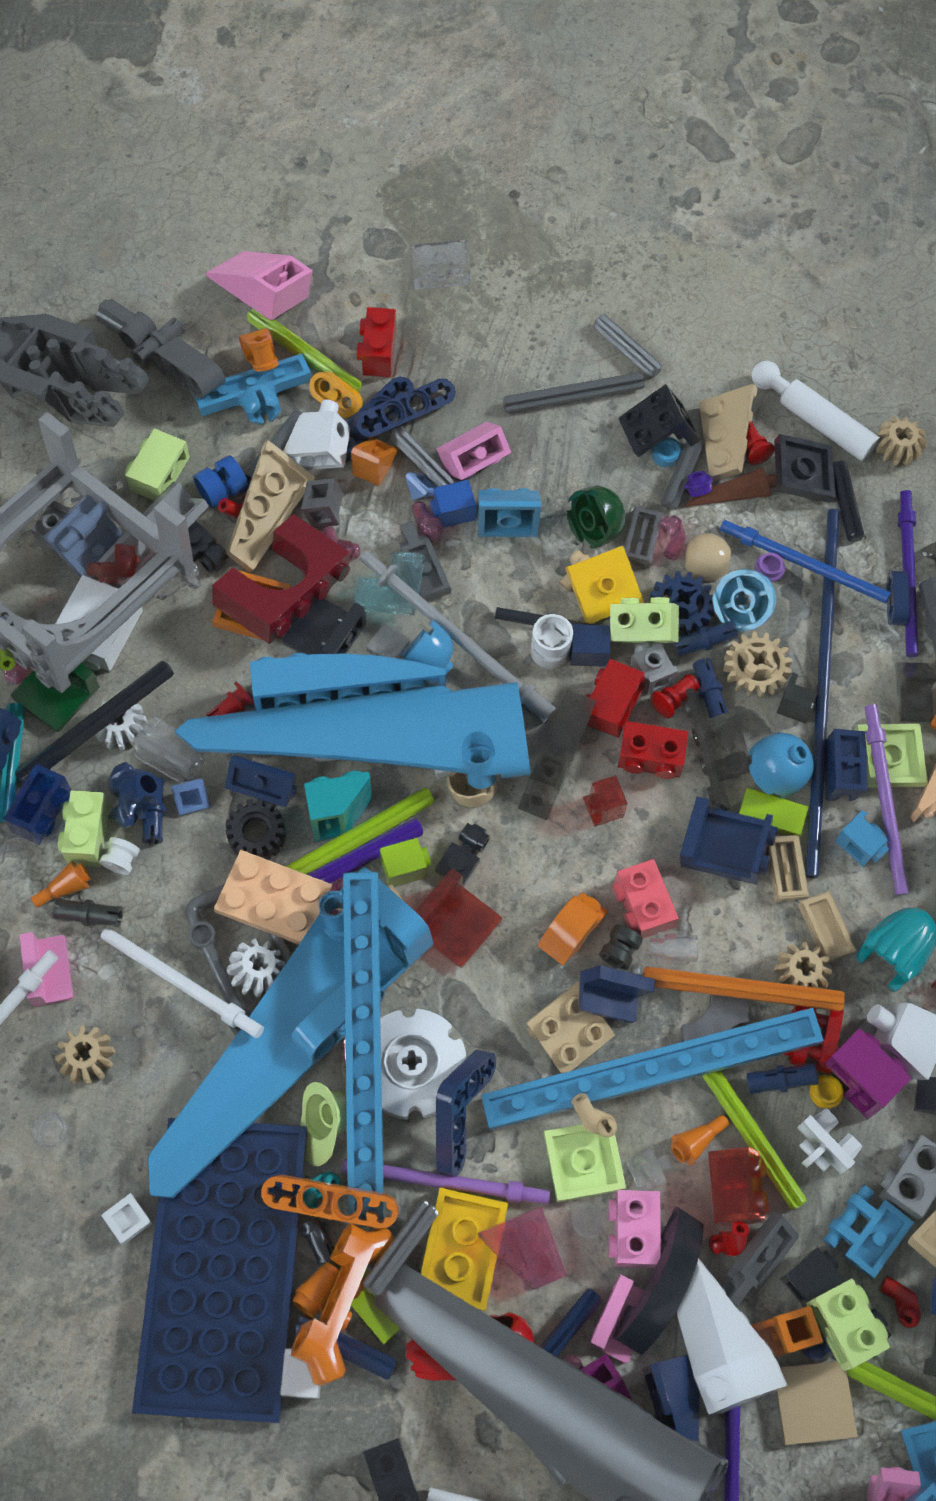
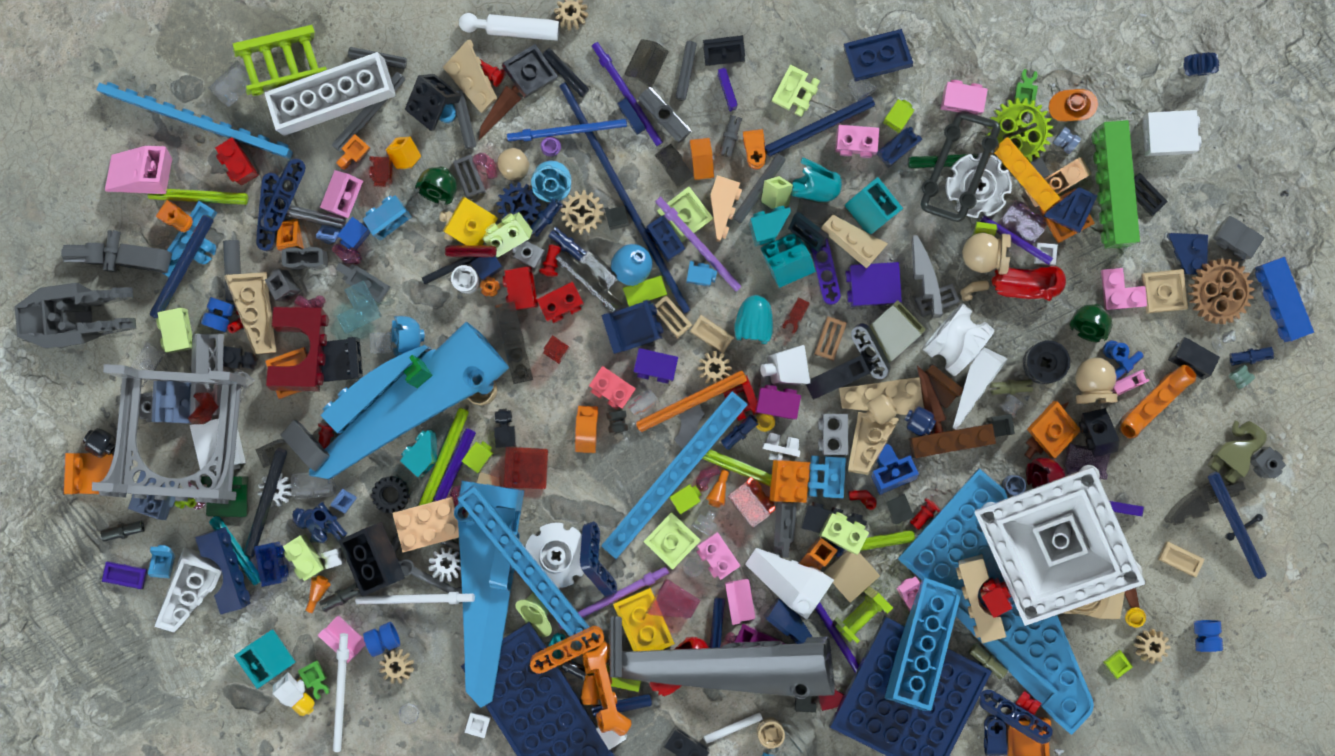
camera: 30 degrees left, 20 degrees up
(90, 1002) = (377, 641): none -> blue wheel
(146, 658) = (267, 452): none -> clear smoke panel
(167, 888) = (371, 559): none -> black brick
(199, 693) = (305, 445): none -> dark grey beam
(229, 397) = (182, 265): none -> dark blue axle
(260, 781) = (374, 470): dark blue panel -> none
(319, 438) = (251, 250): white torso -> none
(338, 392) = (238, 212): light orange plate -> none
(373, 282) = (187, 116): none -> dark azure plate
(374, 489) = (300, 259): none -> dark grey brick
(410, 696) = (417, 372): none -> green panel
(520, 248) = (264, 45): none -> lime fence
(524, 418) = (354, 150): none -> orange plate
(529, 697) = (472, 318): light grey bar -> none
(541, 459) = (381, 171): none -> clear red brick
(545, 339) = (330, 94): none -> white brick
(567, 1032) = (621, 481): tan hinge -> none
(574, 681) = (489, 292): none -> orange plate
(582, 458) = (403, 152): none -> light orange panel
(583, 611) = (470, 251): none -> dark red axle
(592, 1118) = (662, 520): tan arm -> none
(612, 992) = (629, 451): dark blue panel -> none
(644, 1115) = (686, 498): none -> lime brick
(667, 1285) = (749, 569): black slope -> none
(690, 1106) = (704, 477): none -> clear pink arm
(699, 484) = (478, 122): dark purple plate -> none
(724, 911) = (655, 365): none -> dark purple brick
(730, 1242) = (766, 528): red arm -> none
(811, 1195) = (789, 481): none -> orange plate
(833, 1460) = (862, 614): none -> lime fence

